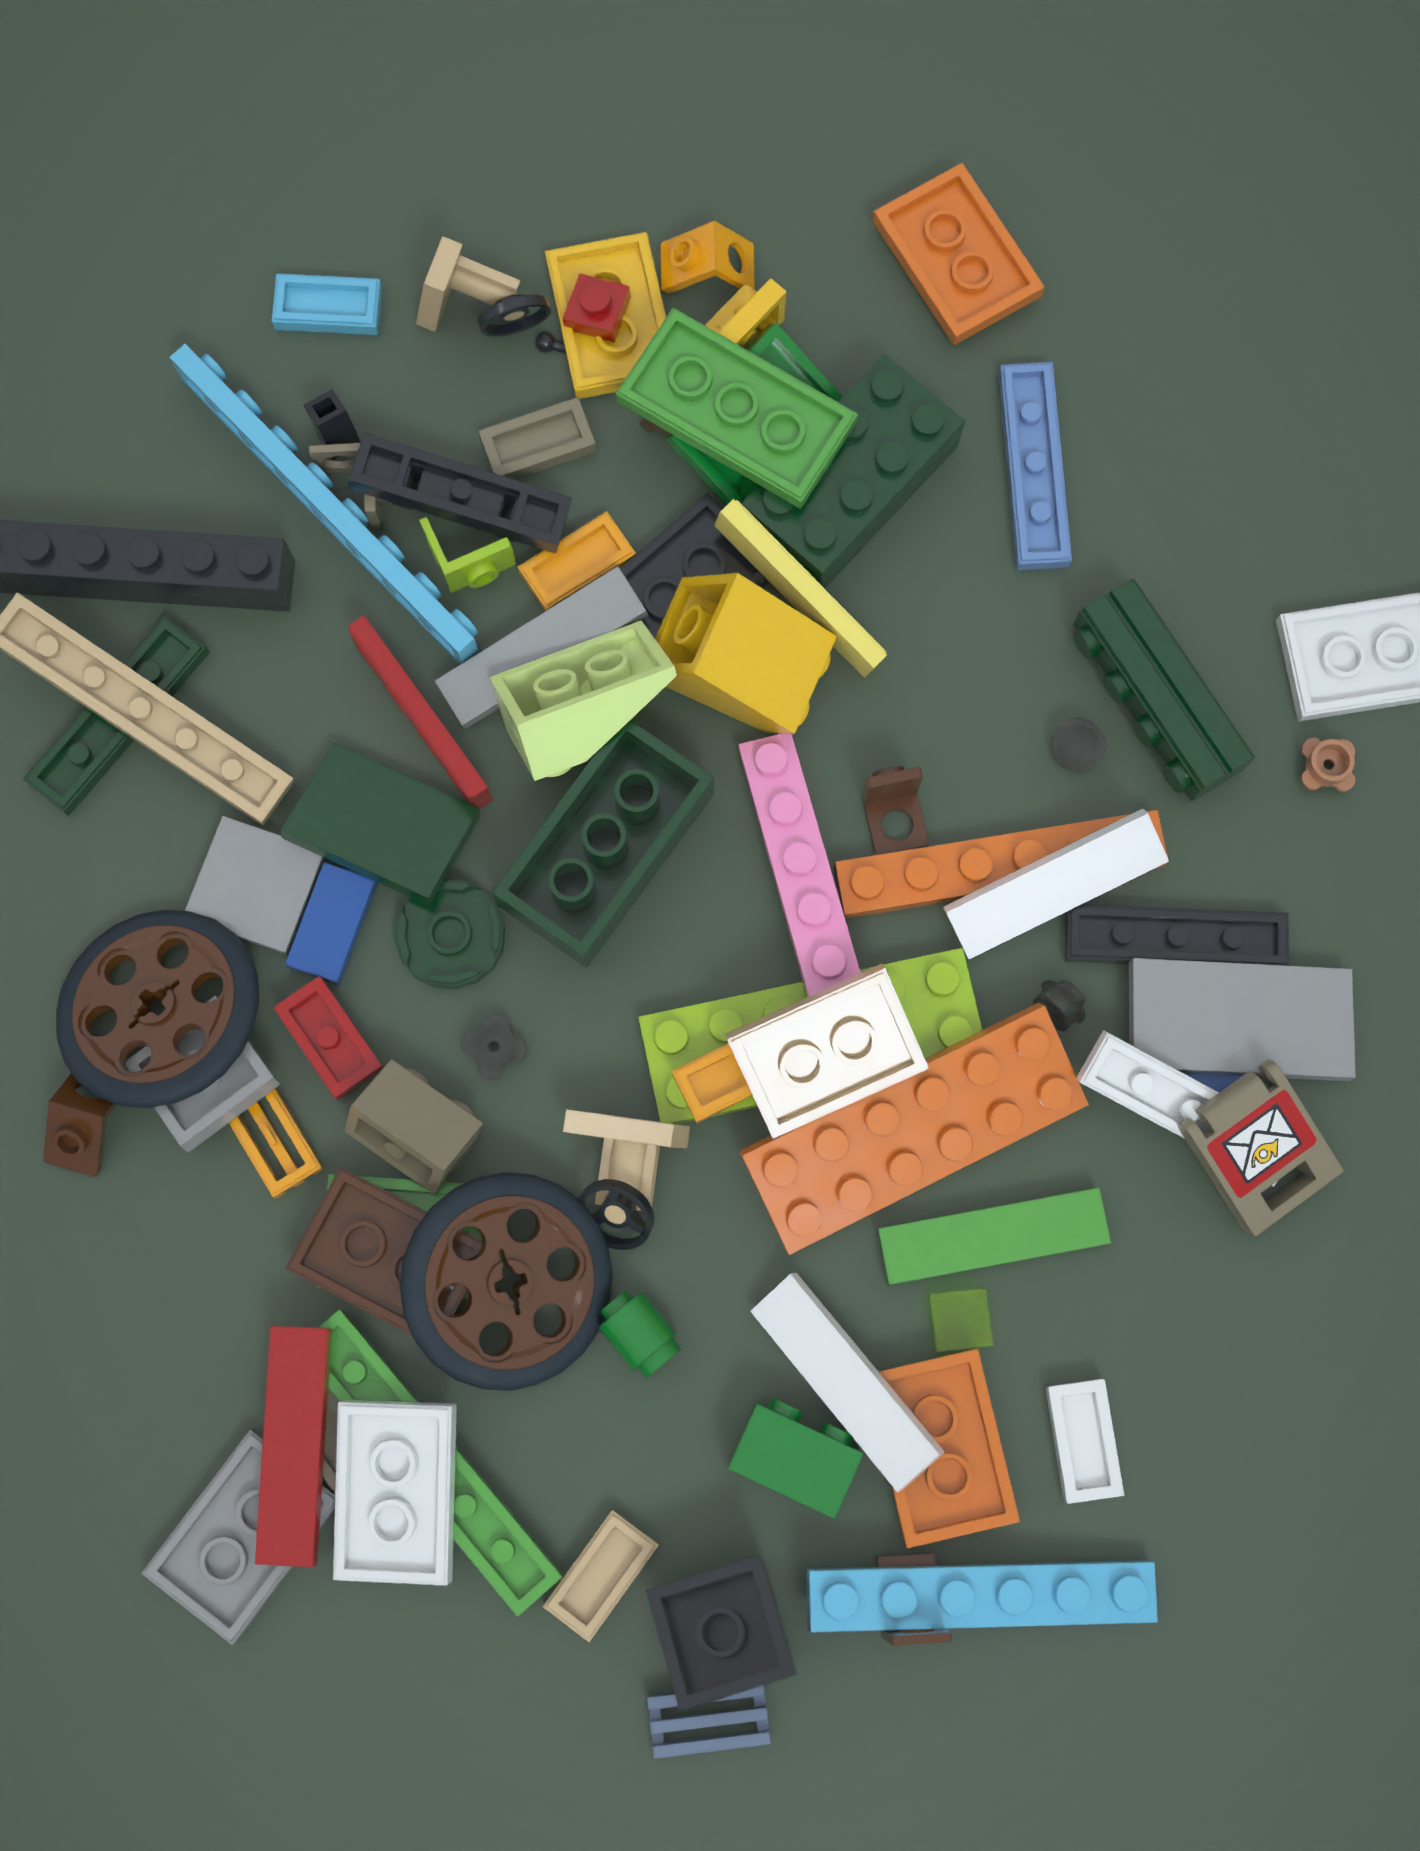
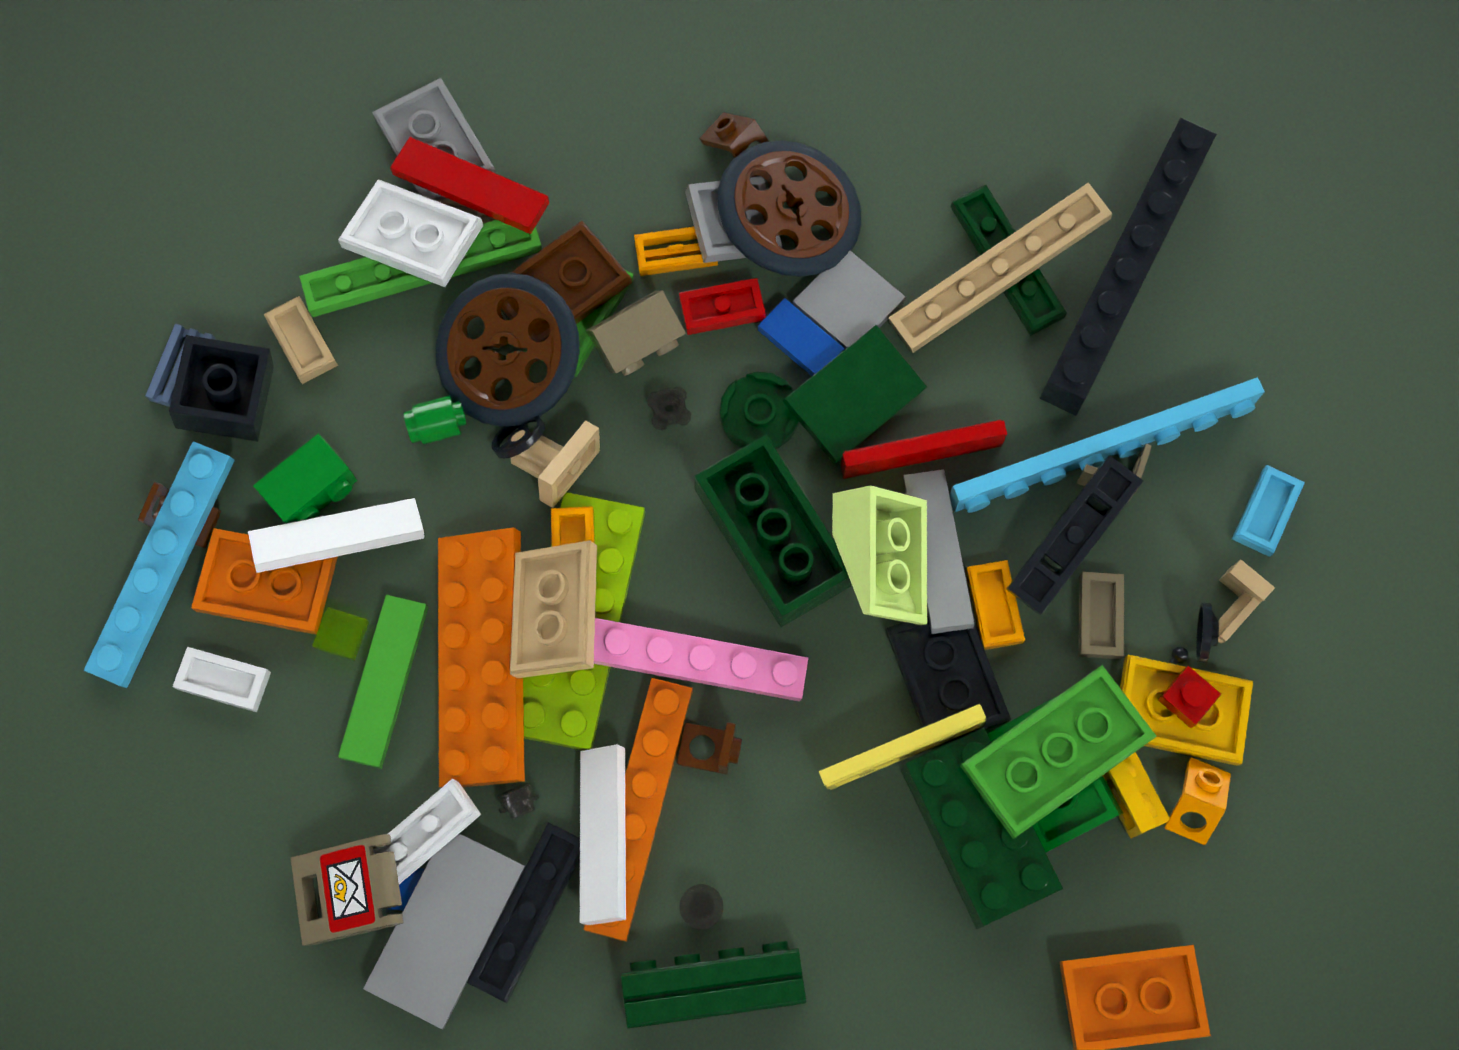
camera: 115 degrees right, 5 degrees down
(331, 420) = (1166, 472): black piece -> none
(473, 568) = (1015, 526): lime bracket -> none
(744, 651) = (870, 682): yellow slope -> none
(1034, 466) = (936, 980): medium blue tile -> none

